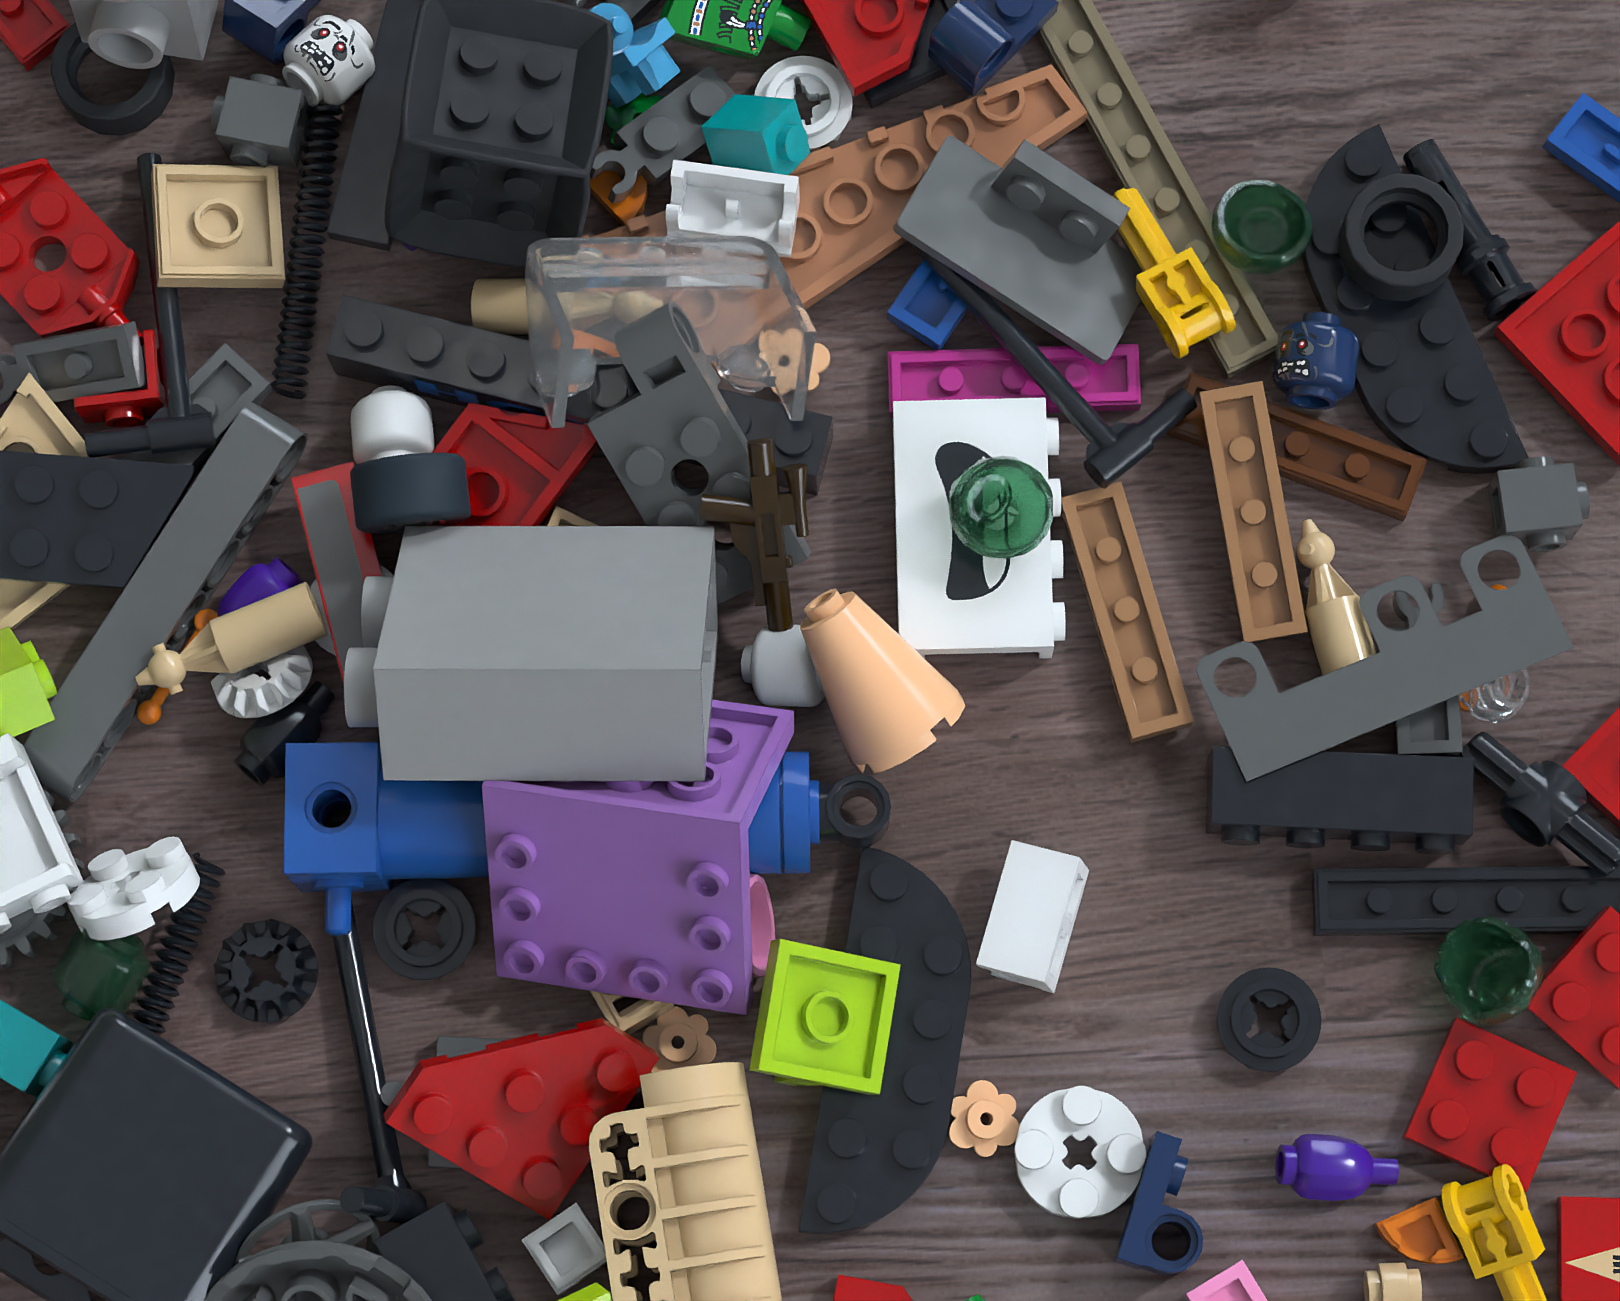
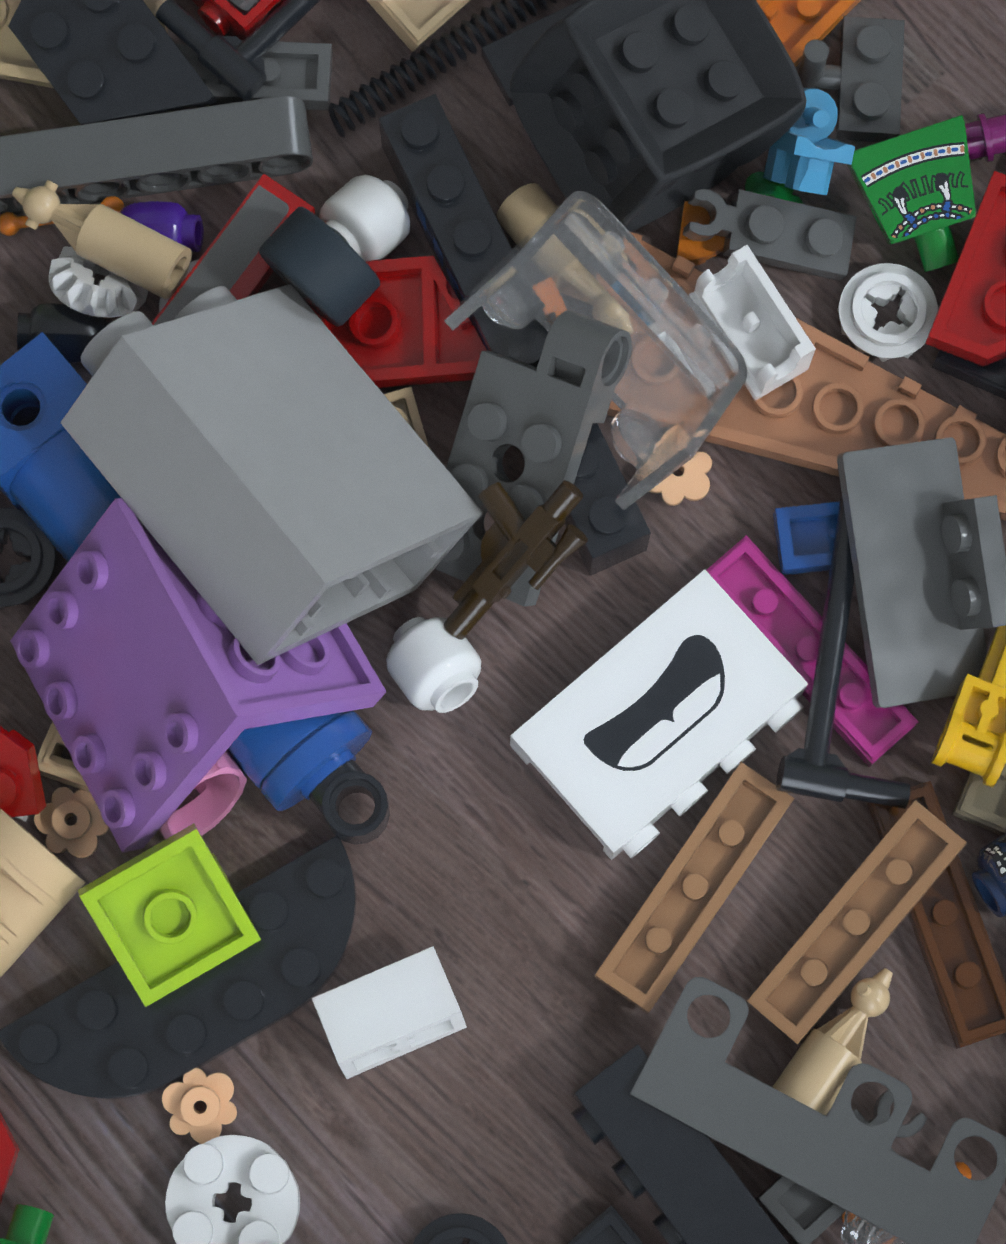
camera: 45 degrees right, 0 degrees up
(757, 134) = (826, 295): teal brick -> none
(875, 682) = (464, 737): light nougat cone -> none
(1001, 507) = (683, 719): clear green piece -> none

